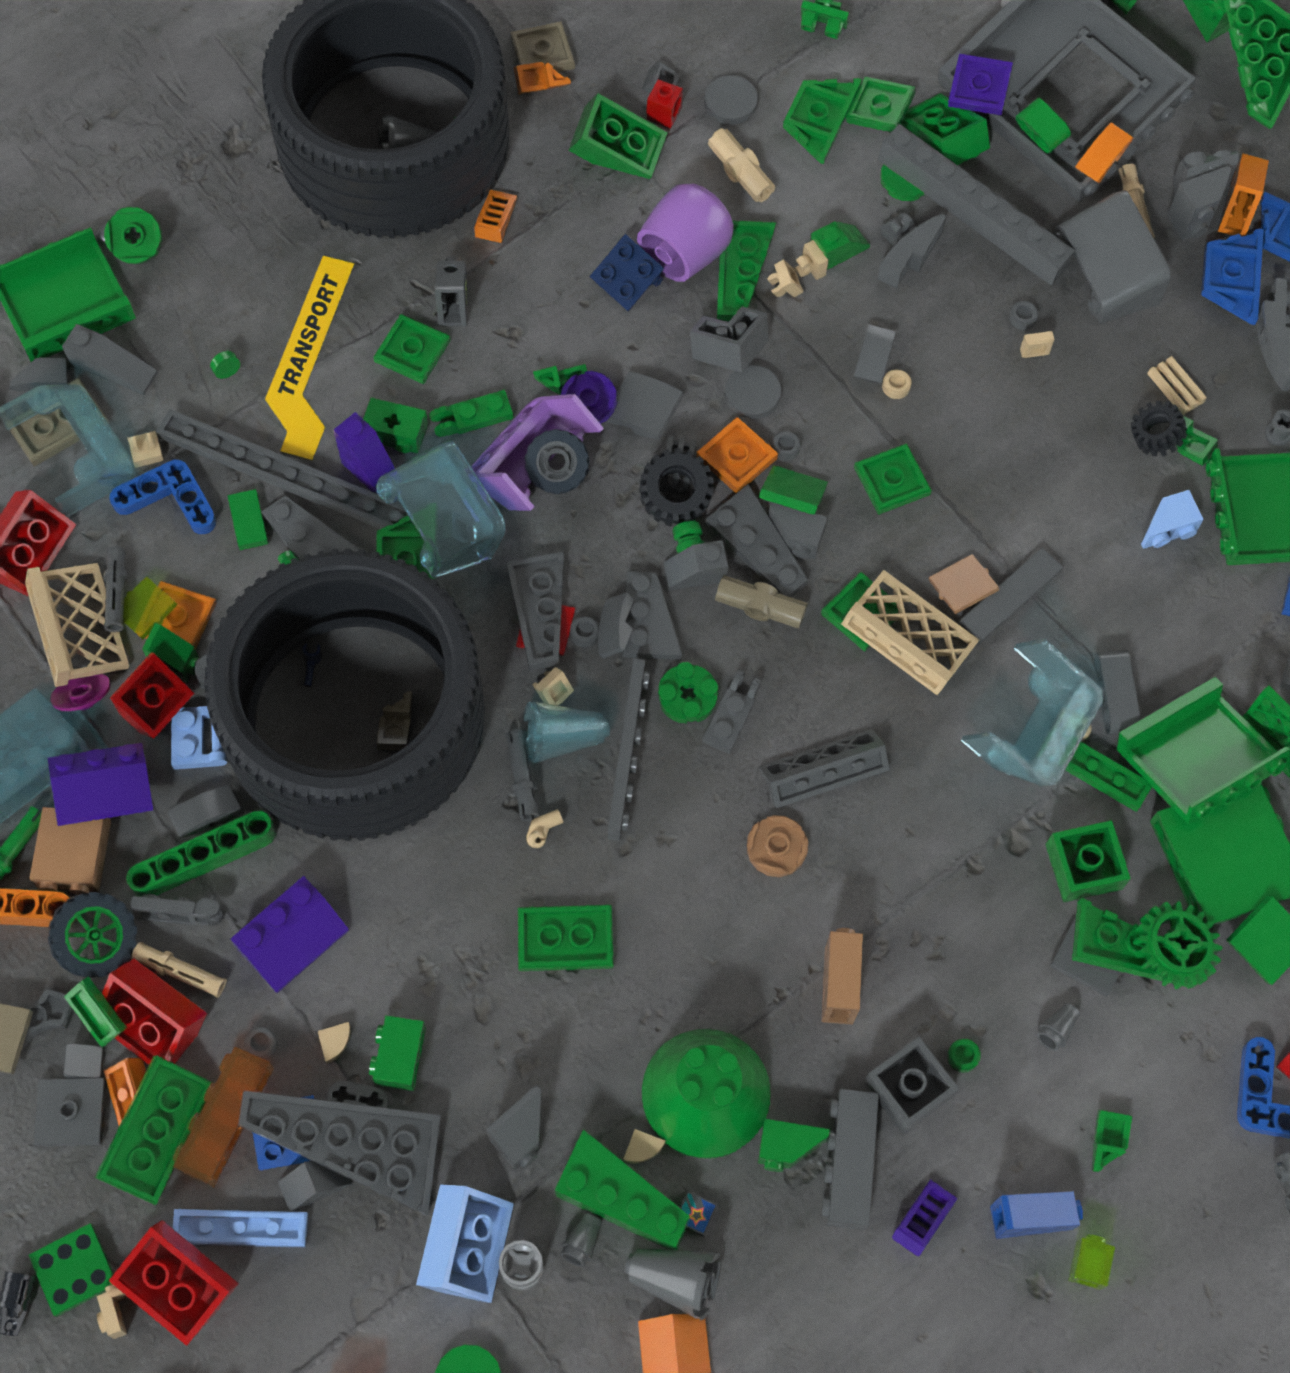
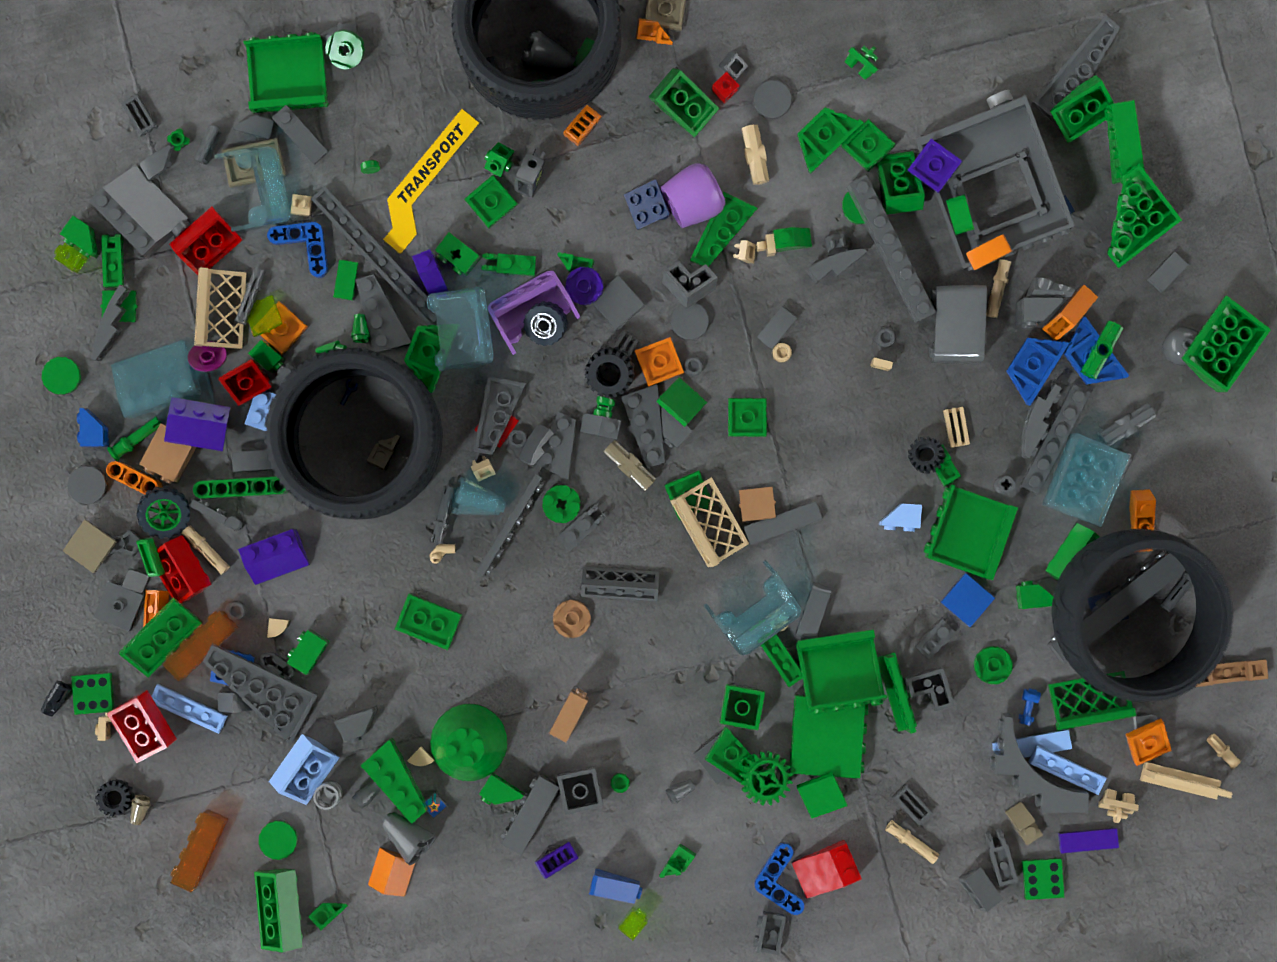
camera: 25 degrees right, 20 degrees up
(402, 289) = (499, 159): none -> green brick

